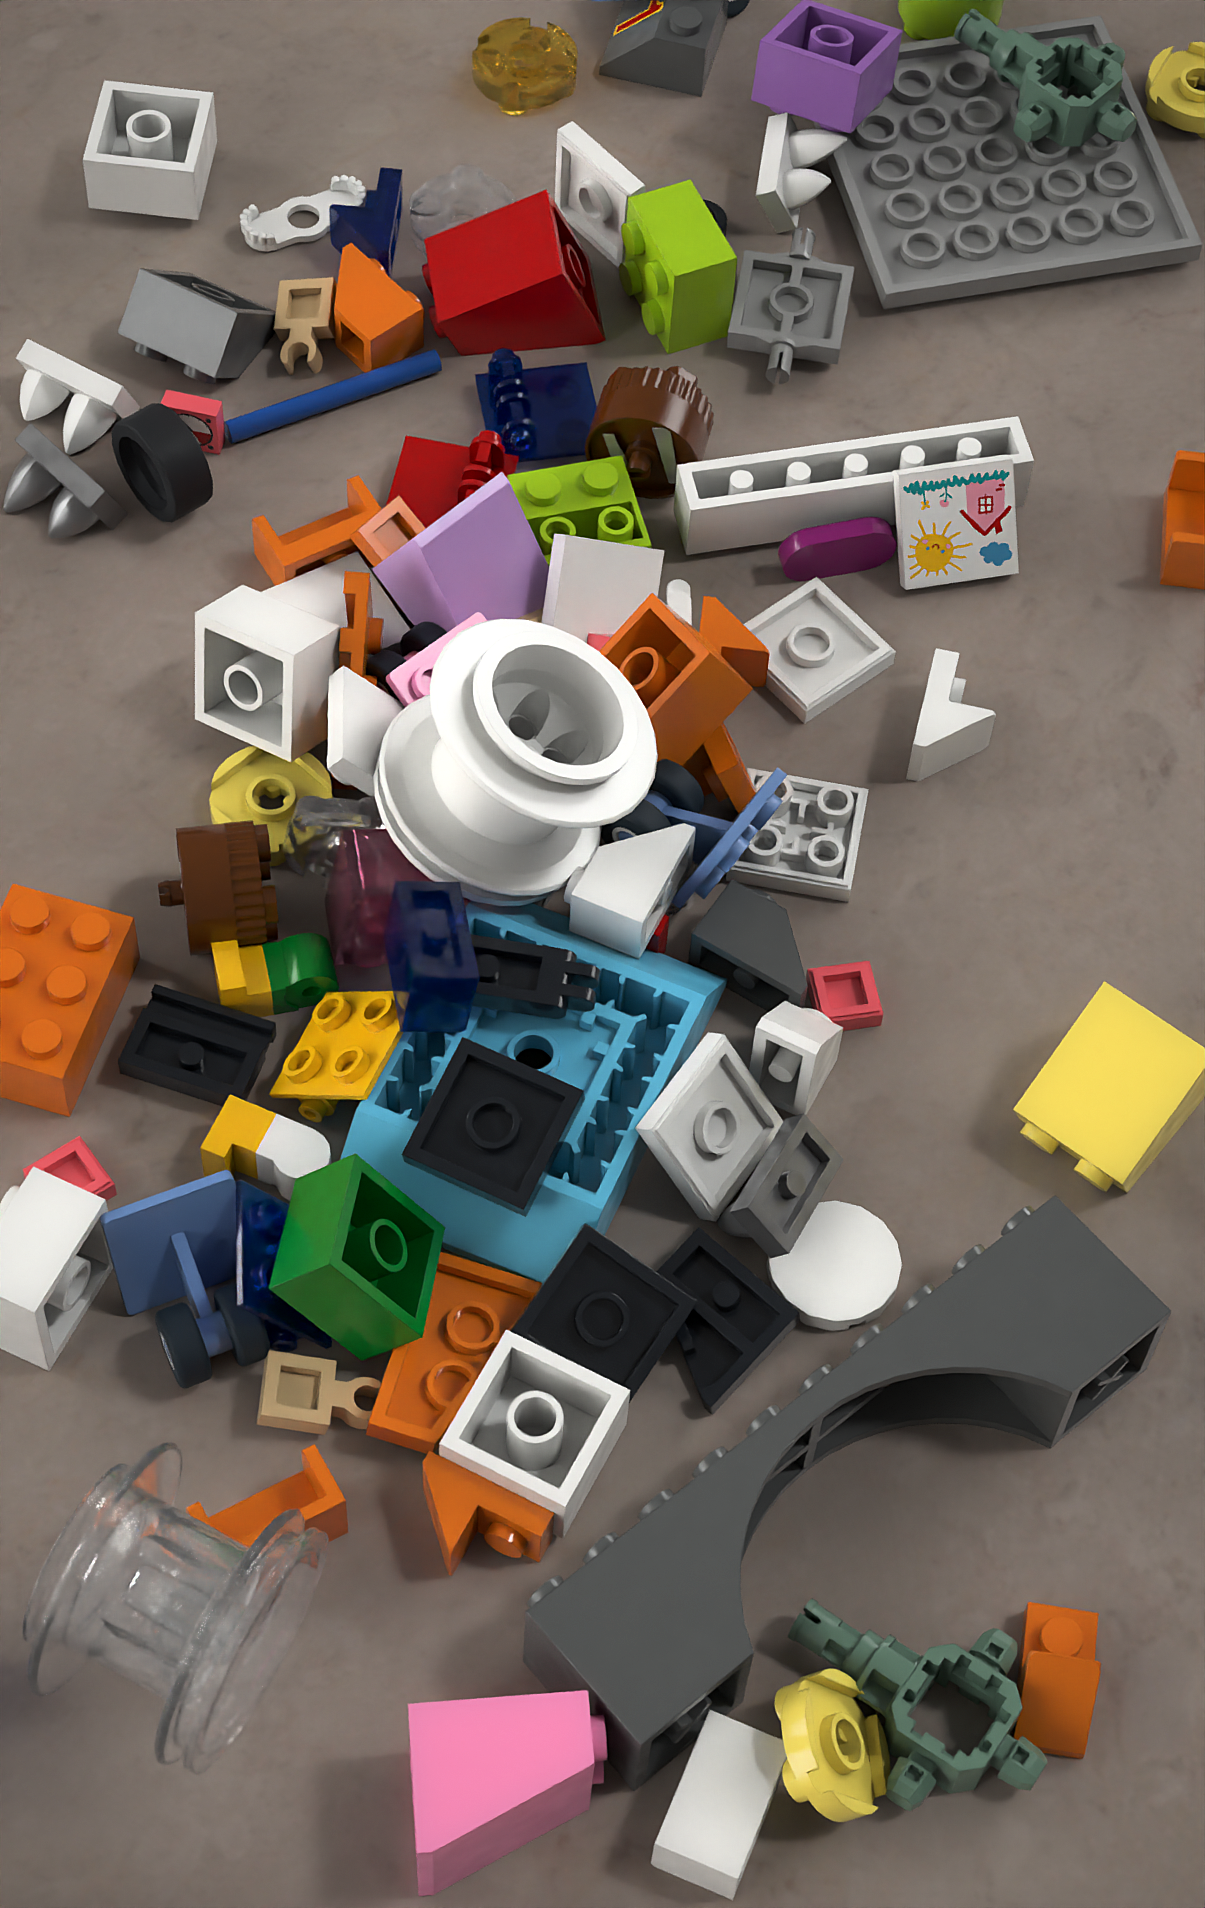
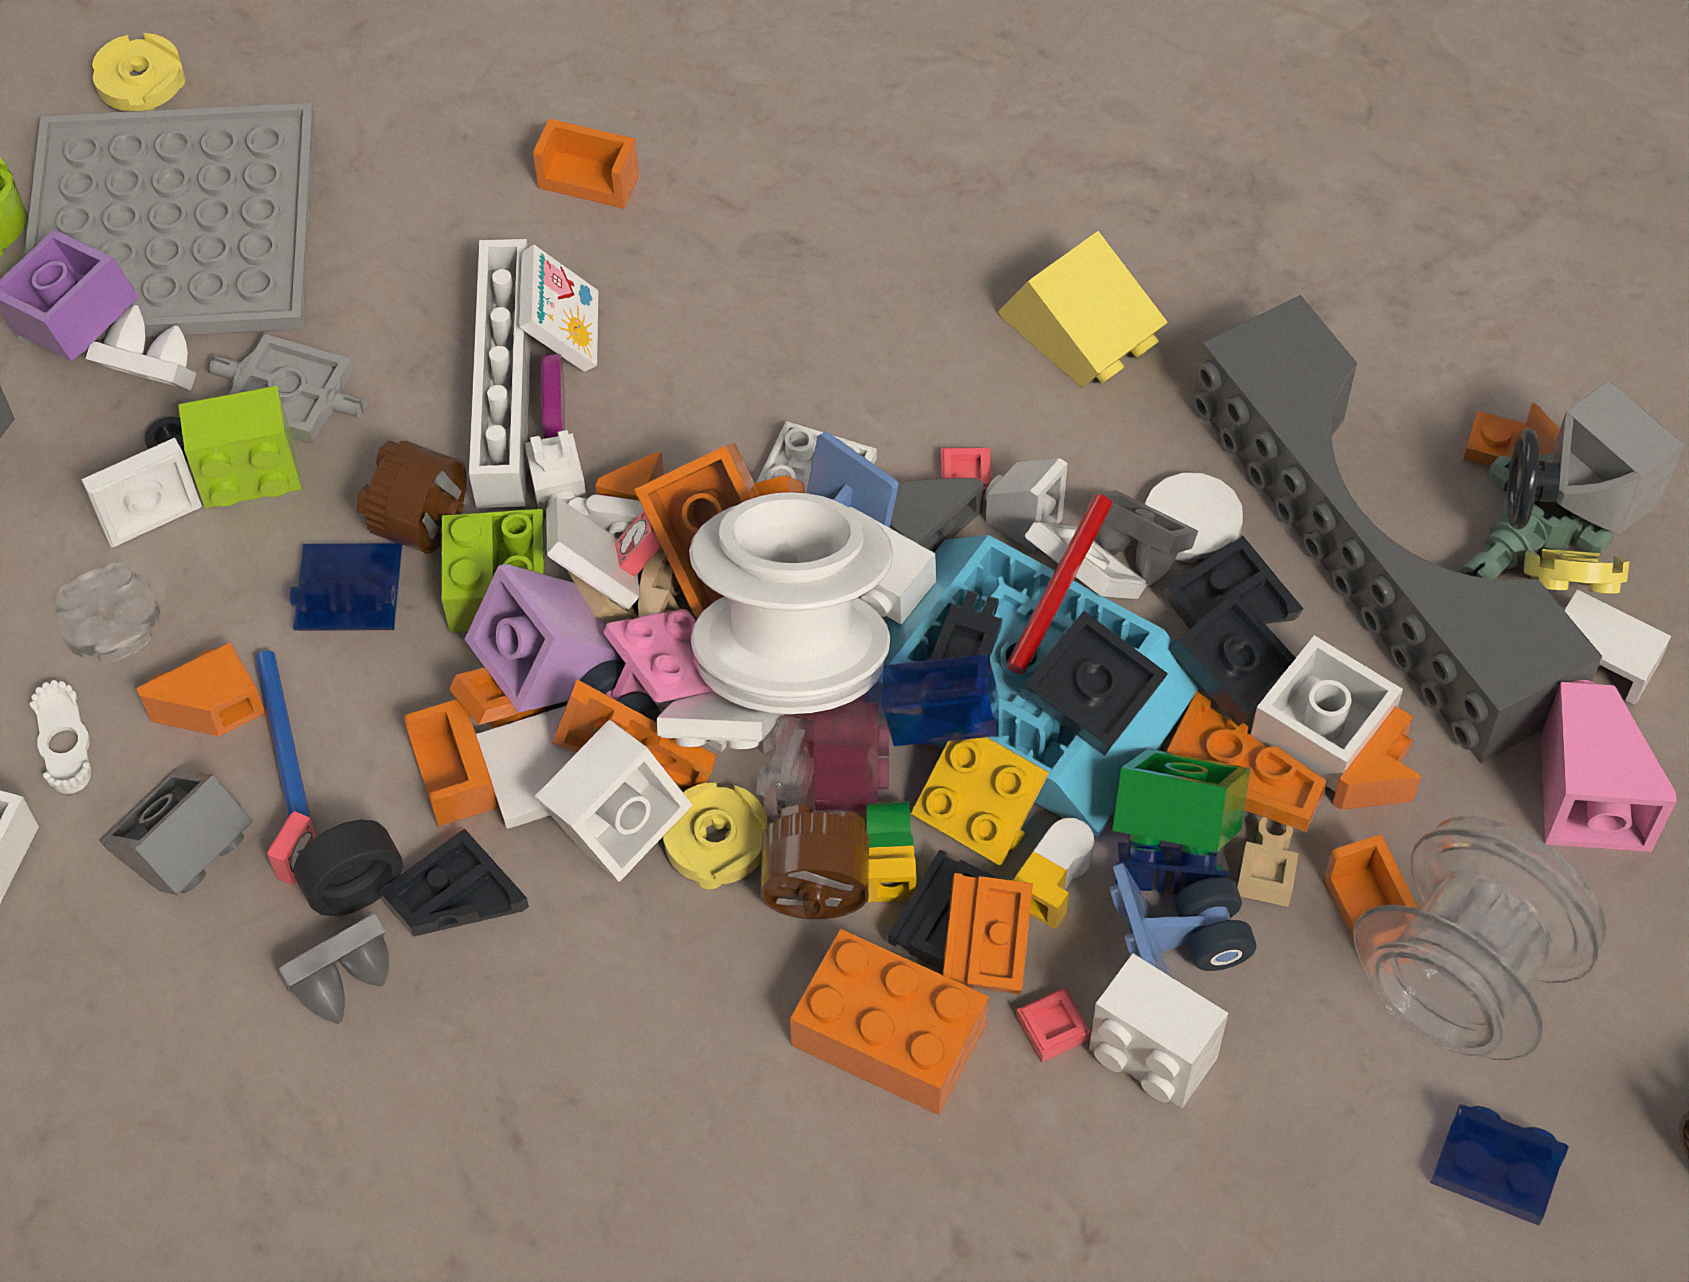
camera: 75 degrees left, 0 degrees up
(94, 400) = (249, 930): white tile -> none
(154, 1075) = (987, 933): none -> orange plate
(167, 570) = (452, 889): none -> black wing
(303, 317) = (192, 745): tan plate -> none
(375, 226) = (105, 674): clear blue slope -> none
(440, 475) = (415, 660): red hinge -> none
(512, 281) = (208, 578): red slope -> none
(633, 1069) = (1059, 584): none -> red bar
(726, 563) = (555, 469): none -> white brick
(817, 649) = (638, 427): white tile -> none
(947, 728) = (736, 365): white slope -> none
(968, 1724) = (1604, 466): none -> light grey piece
(1040, 71) = (101, 164): sand green piece -> none

